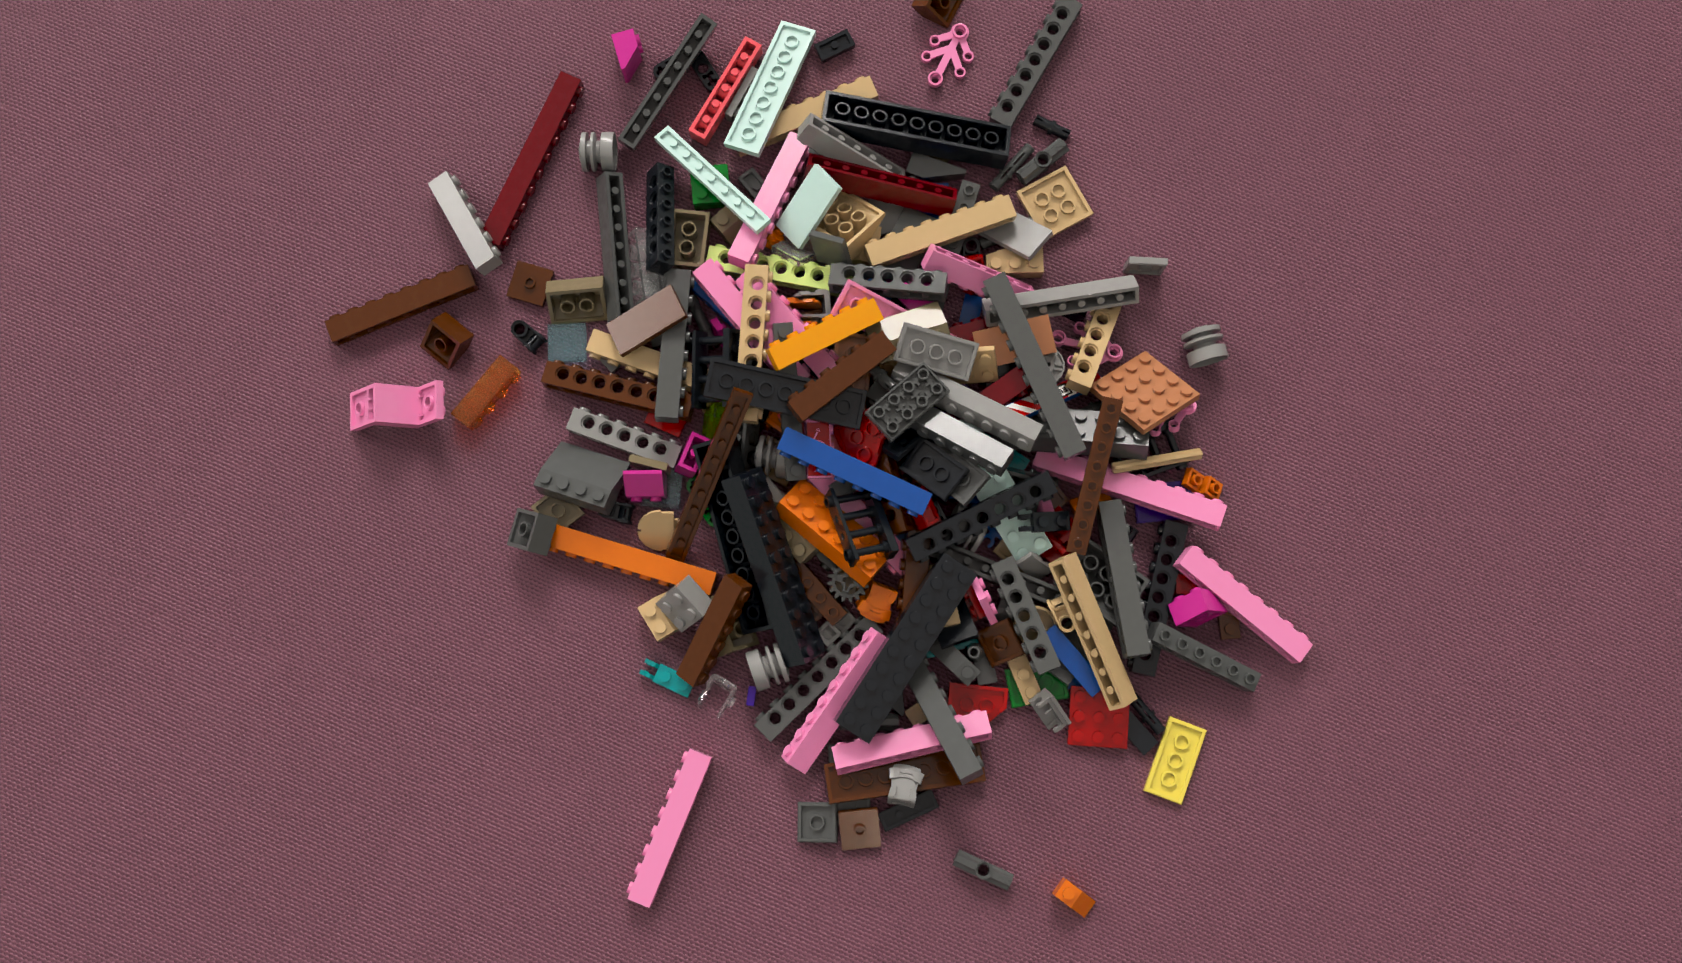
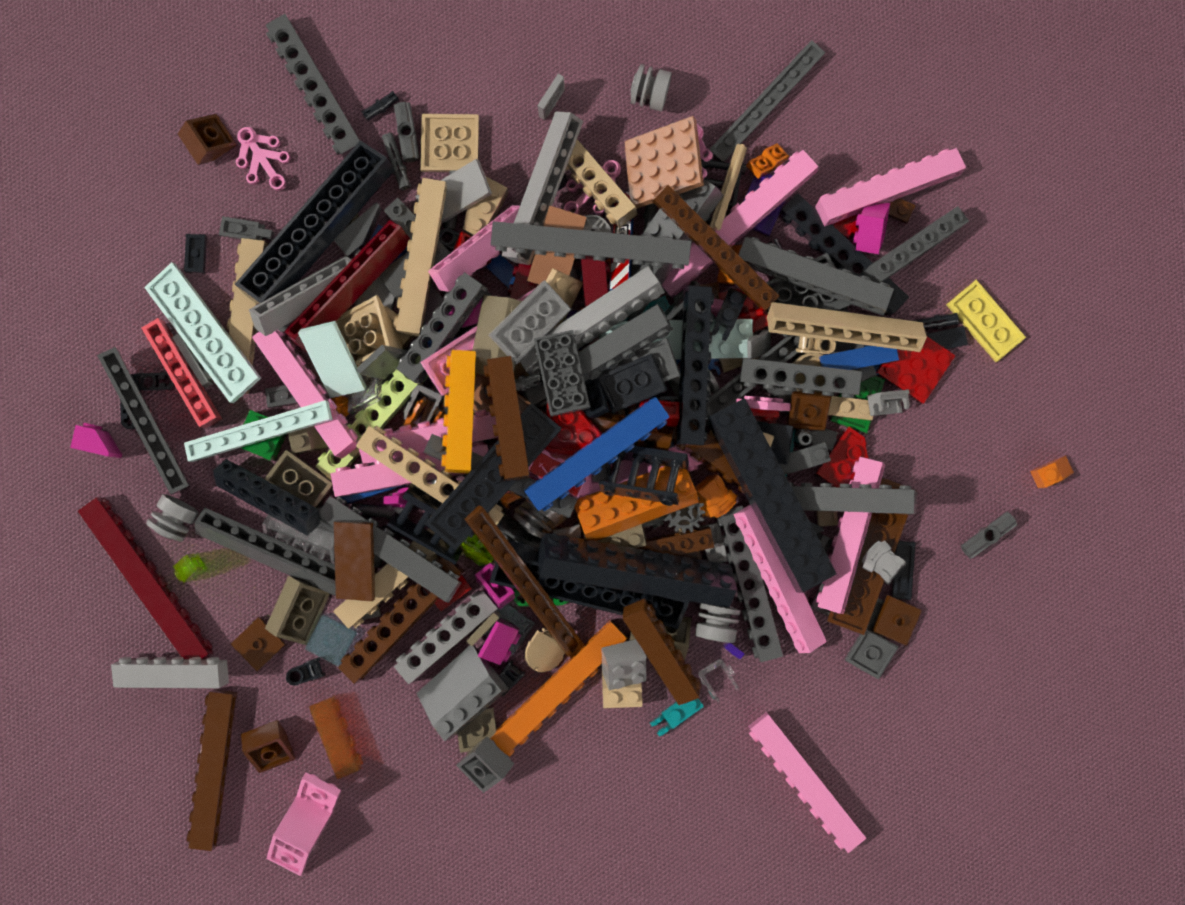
camera: 60 degrees left, 5 degrees up
(564, 189) = (189, 567): none -> clear neon green slope
(878, 73) = (245, 229): none -> dark grey hinge
(1255, 455) = (767, 101): none -> dark grey plate

